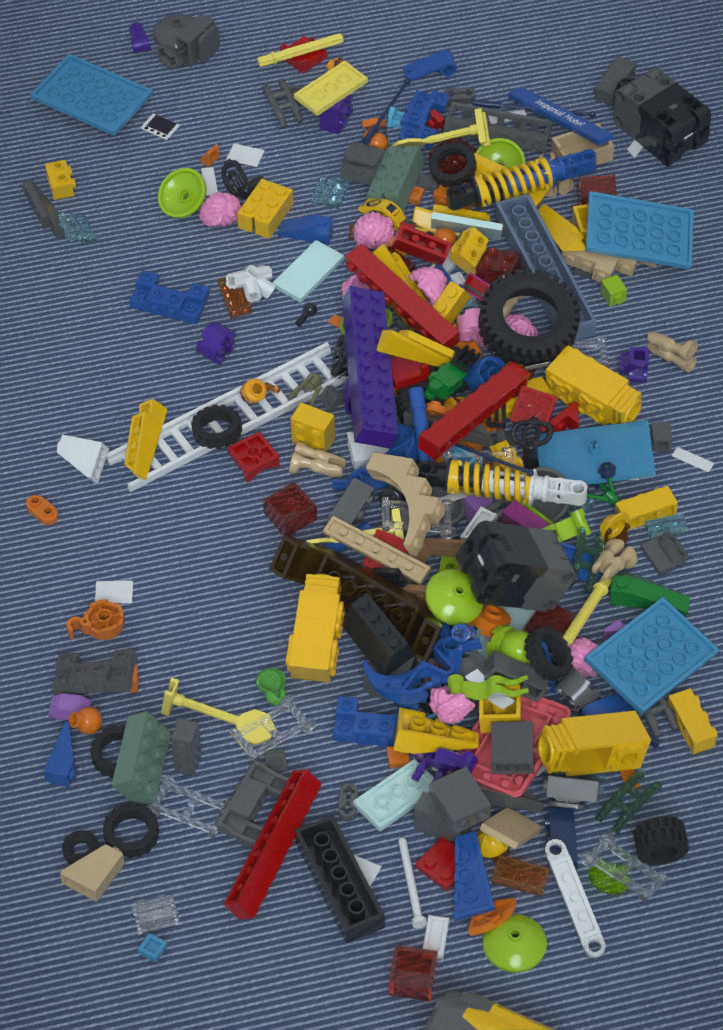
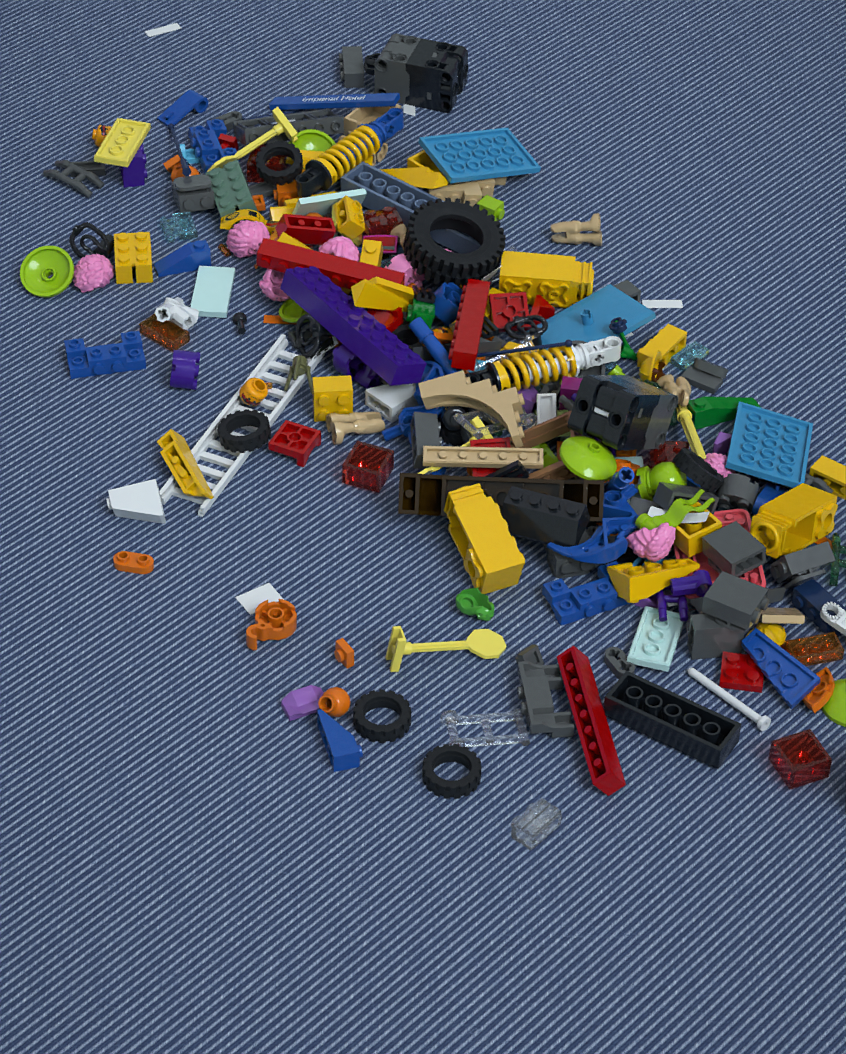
camera: 35 degrees left, 10 degrees down
(77, 837) = (415, 817): black tyre -> none
(94, 677) = (309, 665): dark grey bracket -> none
(94, 872) = (449, 819): tan slope -> none
(141, 758) = (417, 705): sand green piece -> none
(152, 947) = (557, 851): dark azure plate -> none
(186, 746) = (451, 676): dark grey brick -> none
(210, 156) = (43, 237): orange slope -> none
(245, 154) = (65, 229): white sticker -> none
(273, 58) = (40, 144): light yellow axle -> none
(285, 704) = (499, 613): clear piece -> none
(306, 61) = (59, 137): red piece -> none
(331, 398) = (323, 370): dark grey tile -> none
(396, 758) = (628, 611): orange plate -> none
(436, 934) = (783, 723): white tile -> none
(598, 184) = (407, 141): clear red piece -> none
(635, 364) = (558, 245): dark purple brick -> none

